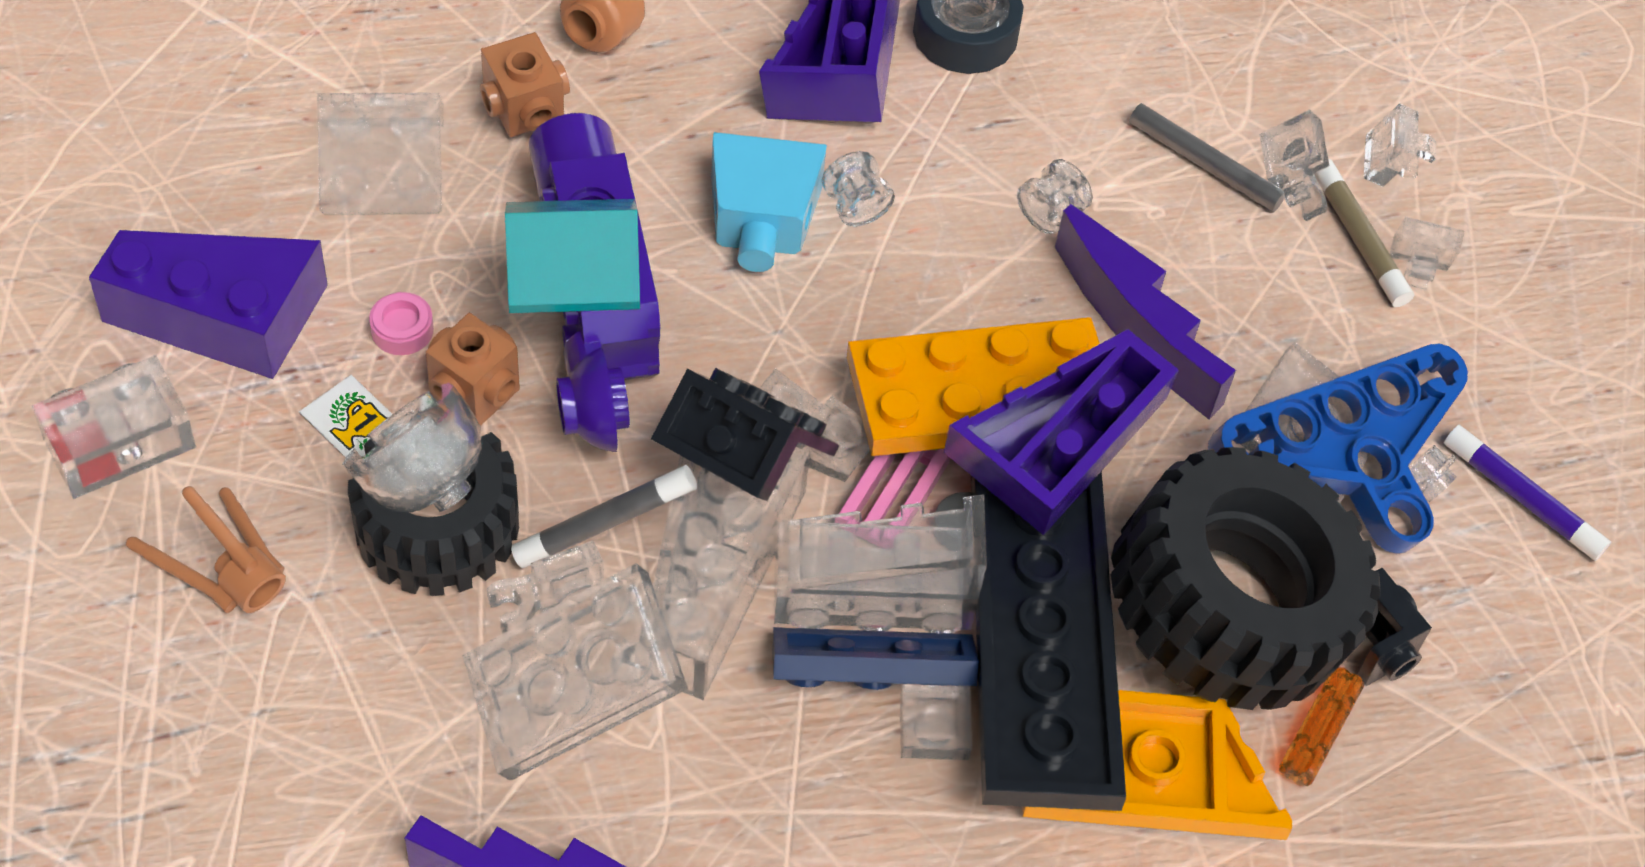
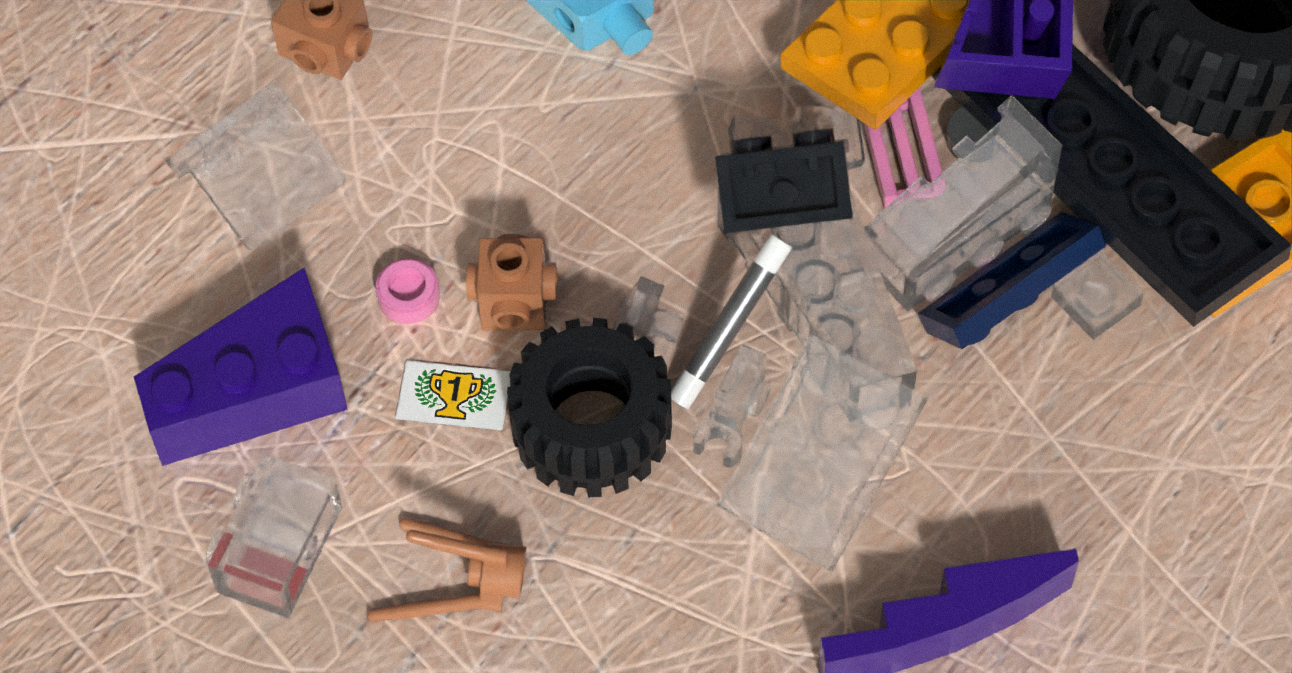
camera: 30 degrees left, 5 degrees up
(421, 454) = (573, 368): clear cylinder -> none
(545, 471) = (641, 313): none -> clear tile
(572, 255) = (542, 128): teal slope -> none
(578, 161) = (541, 137): dark purple brick -> none

